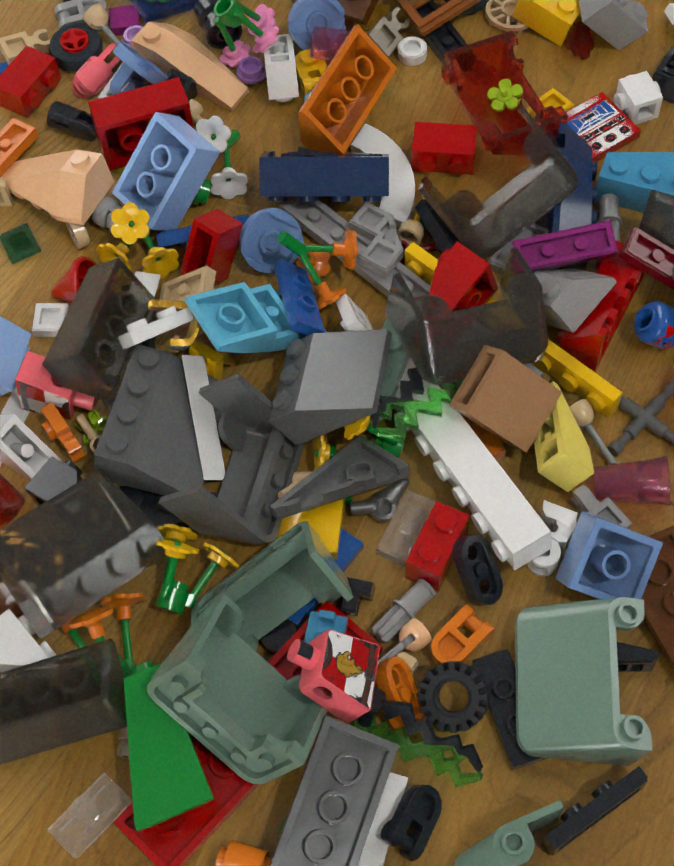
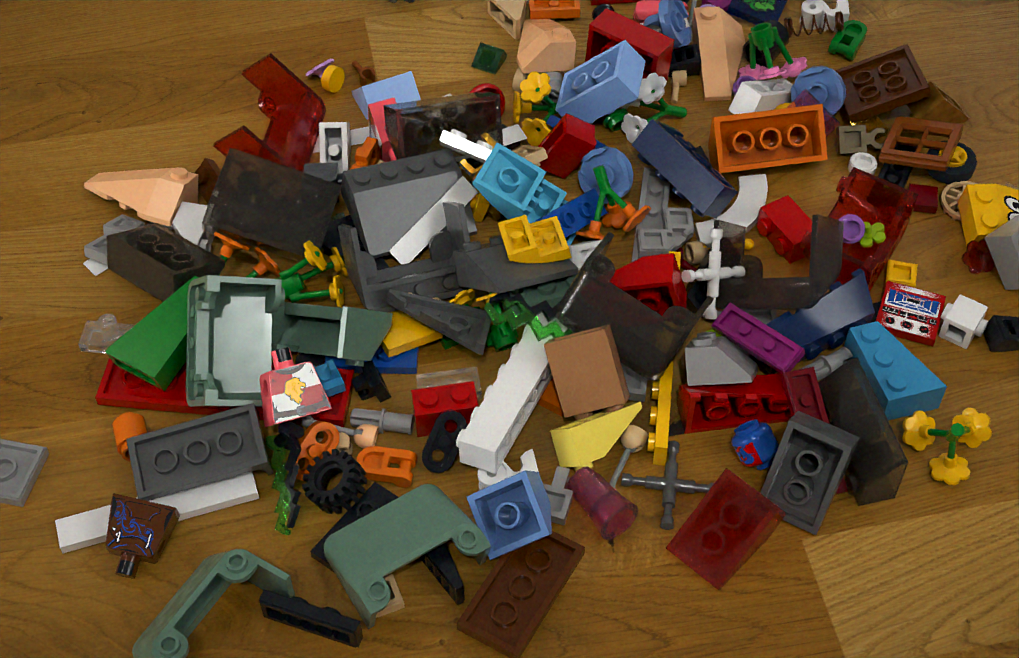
camera: 50 degrees right, 10 degrees down
(326, 343) = (534, 242): none -> yellow slope
(382, 503) = (459, 360): flat silver animal -> none
(421, 809) = (240, 511): black plate -> none
(462, 220) = (713, 272): none -> white piece
(481, 30) = (927, 198): none -> dark red tile
(495, 103) = (853, 228): none -> medium lavender plate

